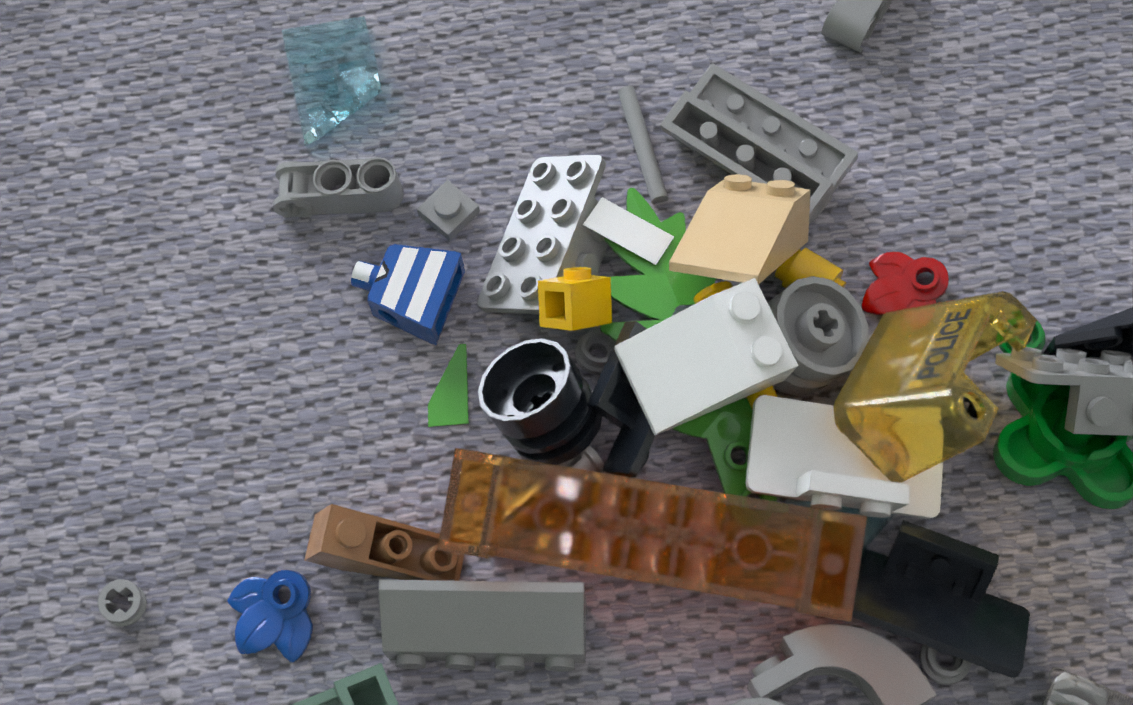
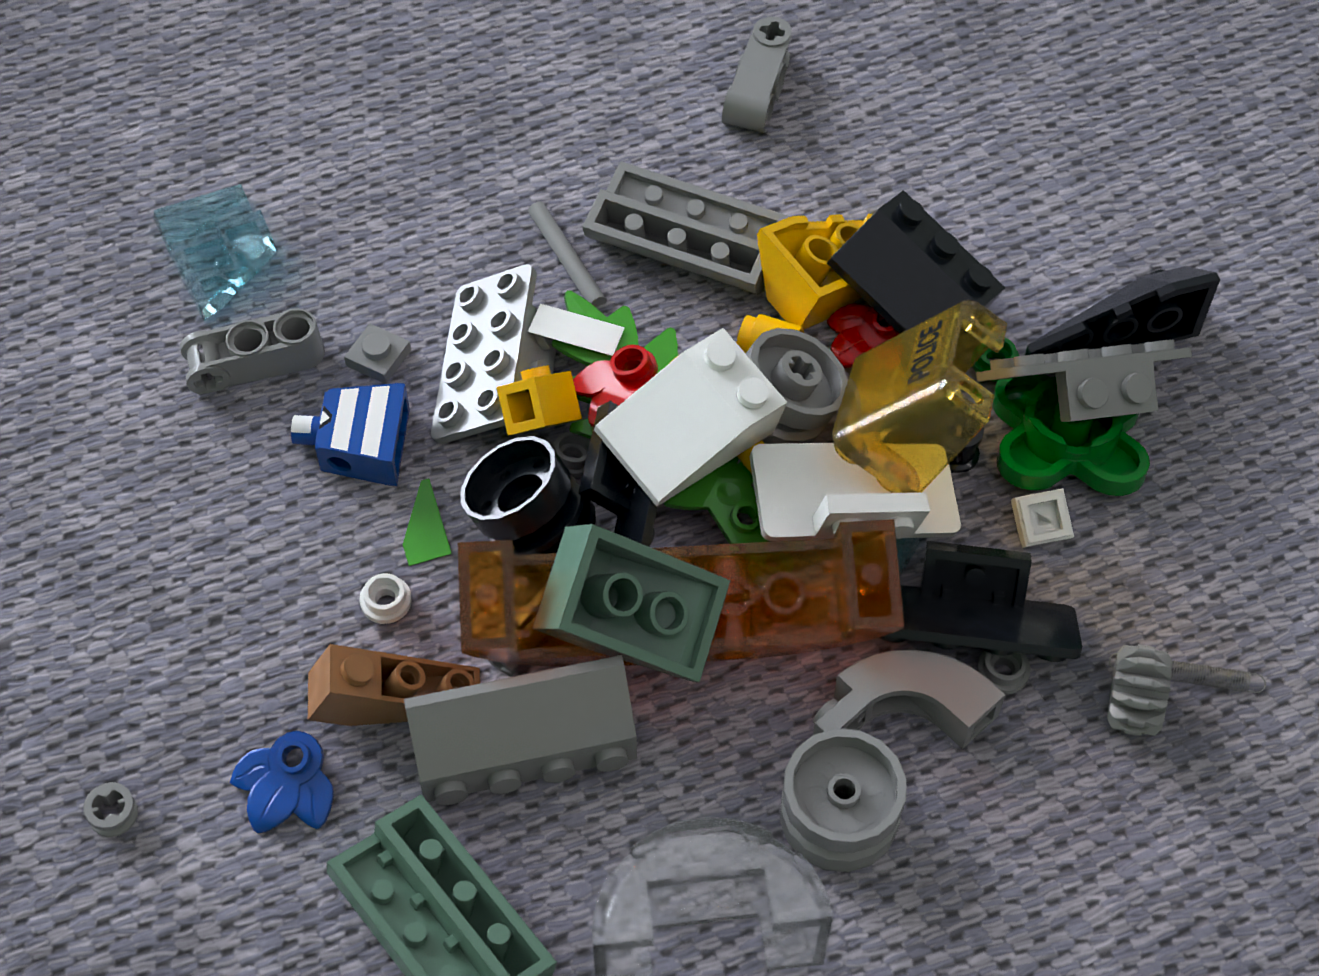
camera: 20 degrees left, 10 degrees down
(389, 447) = (380, 586): none -> white plate
(605, 533) = (631, 602): none -> sand green slope
(646, 294) = (615, 378): none -> red plate
(744, 230) = (696, 298): tan slope -> none
(884, 206) = (797, 270): none -> yellow wedge
(963, 236) = (911, 266): none -> black slope
(1023, 514) = (1042, 518): none -> white tile

